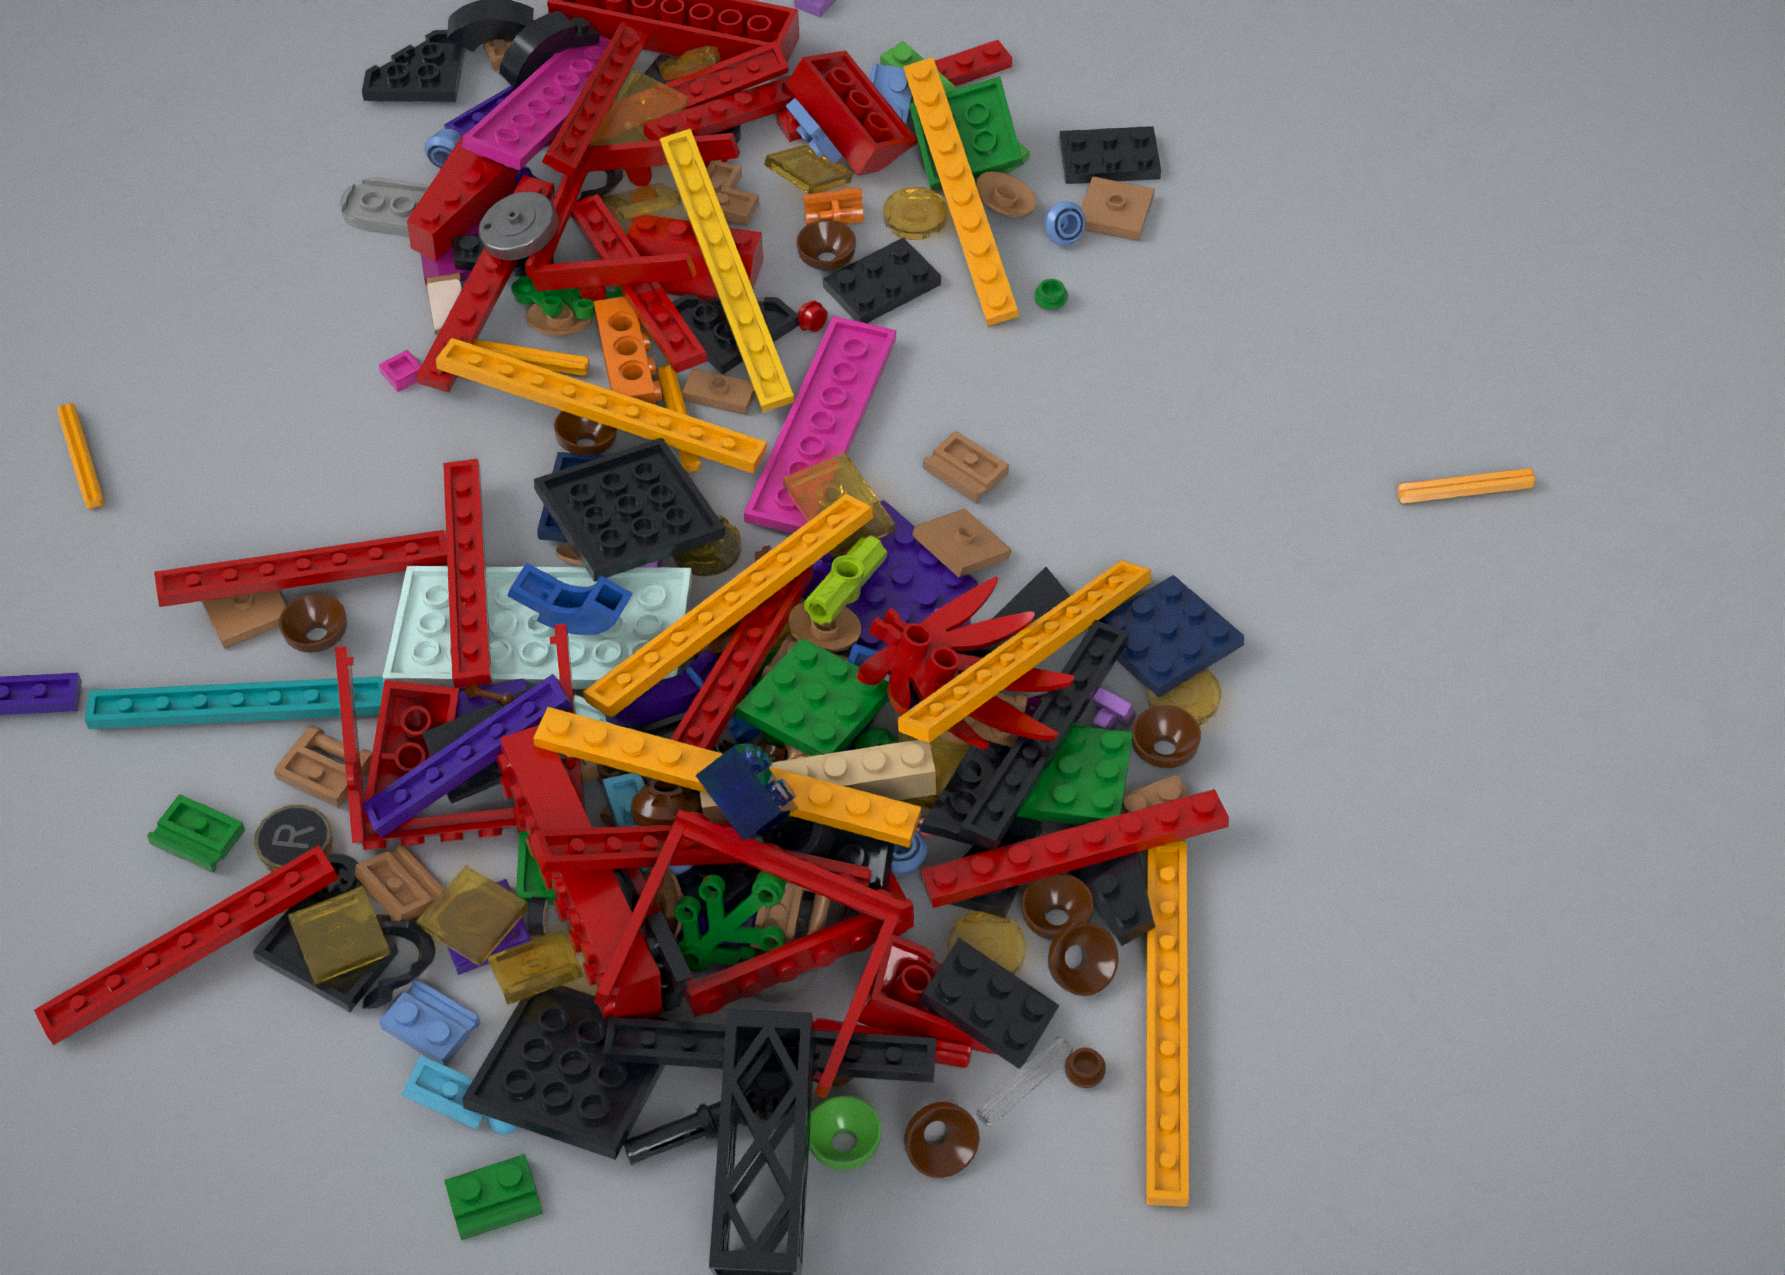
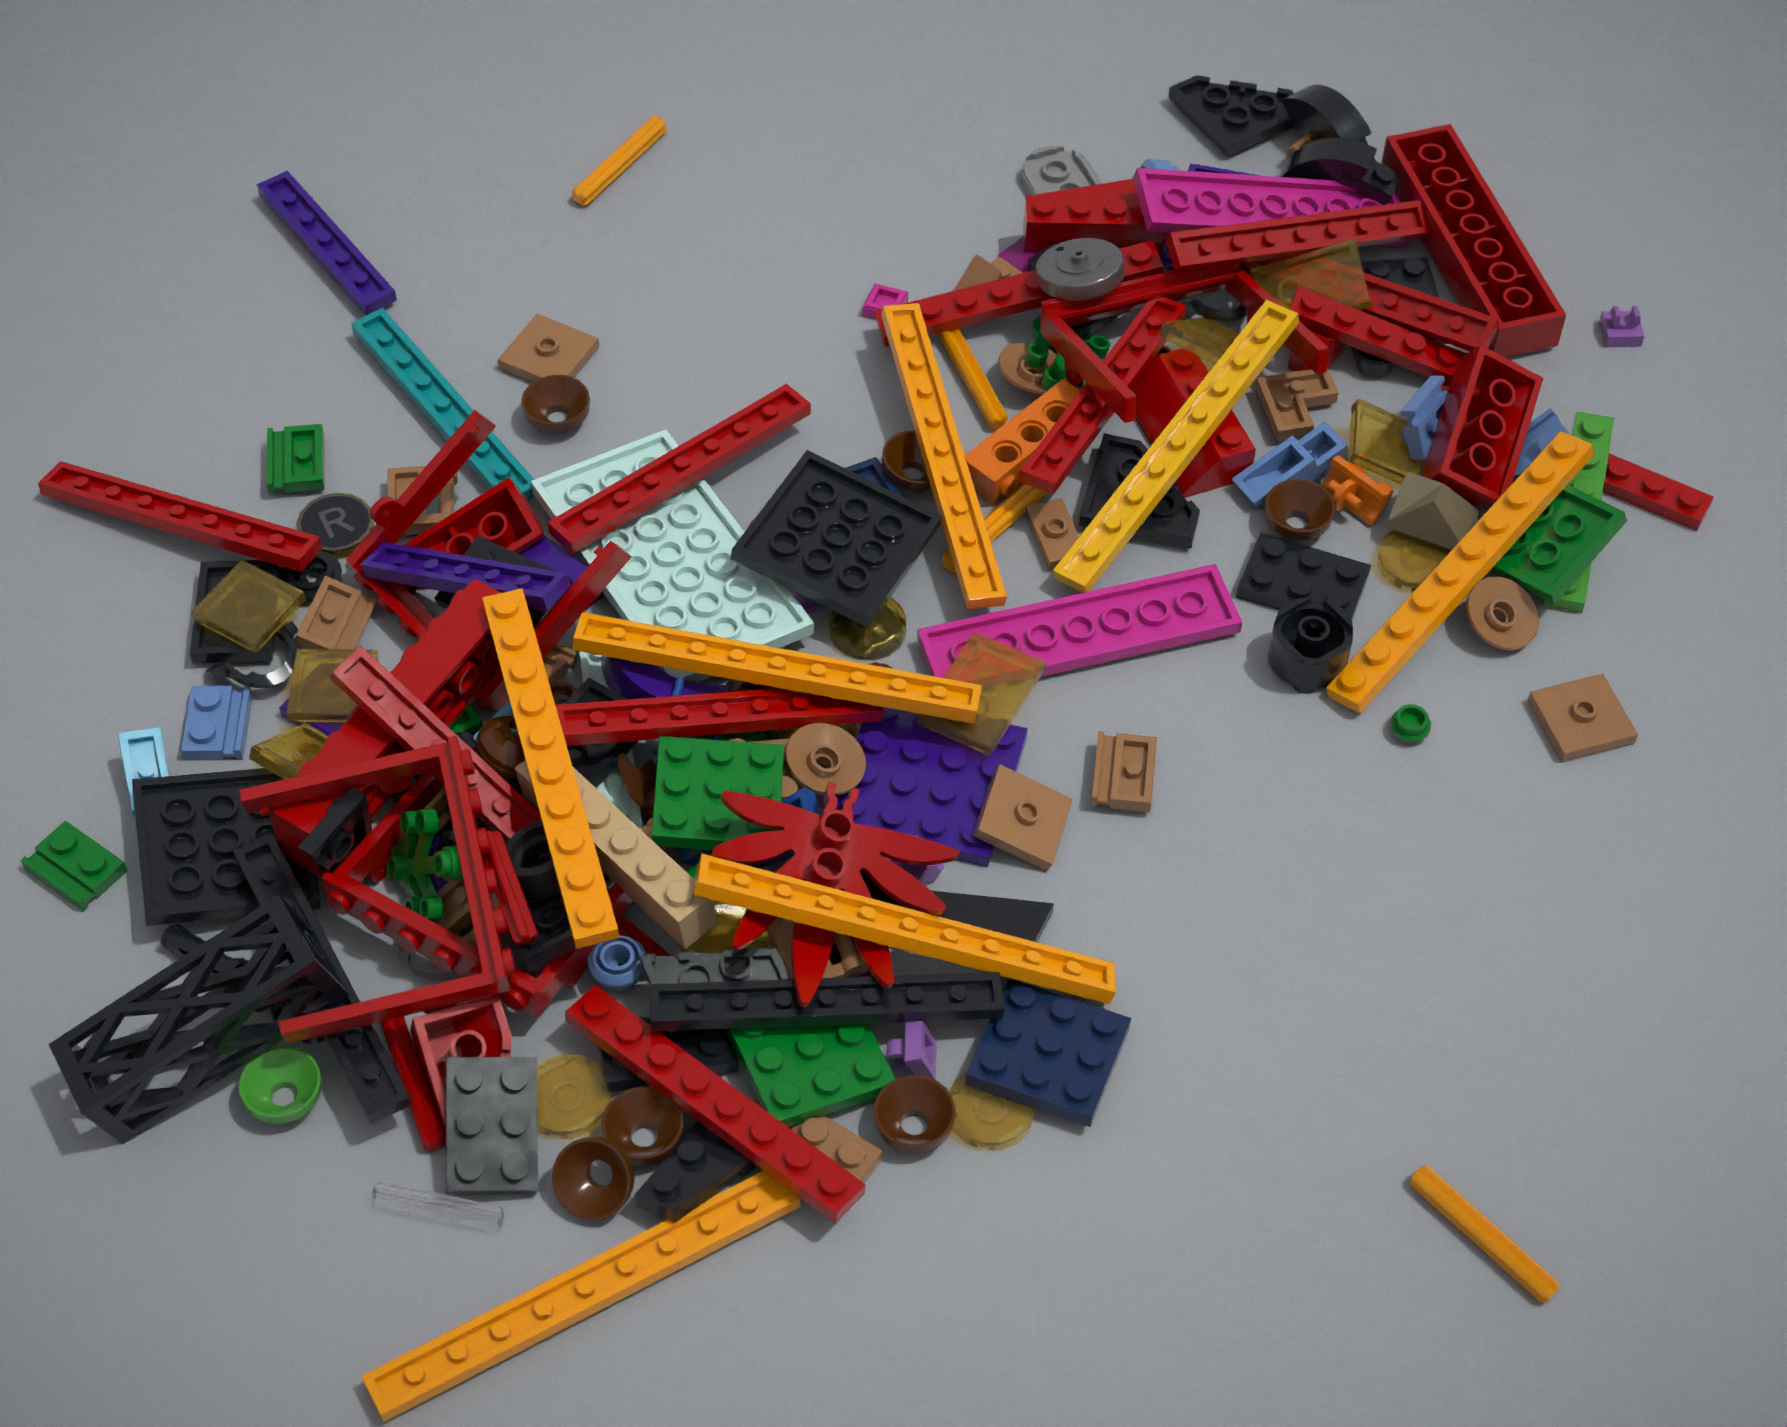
camera: 55 degrees right, 0 degrees up
(299, 568) = (598, 357): red plate -> none
(474, 690) = (551, 547): reddish brown hinge -> none
(582, 609) = (687, 546): blue arch -> none
(689, 63) = (1415, 278): clear yellow tile -> none
(748, 790) = (510, 774): clear blue brick -> none
(781, 227) = (1292, 459): none -> medium blue slope
(812, 316) = (1205, 550): red plate -> none
(845, 580) = (905, 743): lime piece -> none
(889, 180) = (1431, 512): none -> dark tan slope
(949, 303) = (1310, 643): none -> black brick
(952, 1150) = (306, 1171): reddish brown piece -> none
(1064, 223) = (1509, 682): medium blue cone -> none
(1085, 1068) = (483, 1250): reddish brown plate -> none
(1110, 154) = (1652, 674): black plate -> none

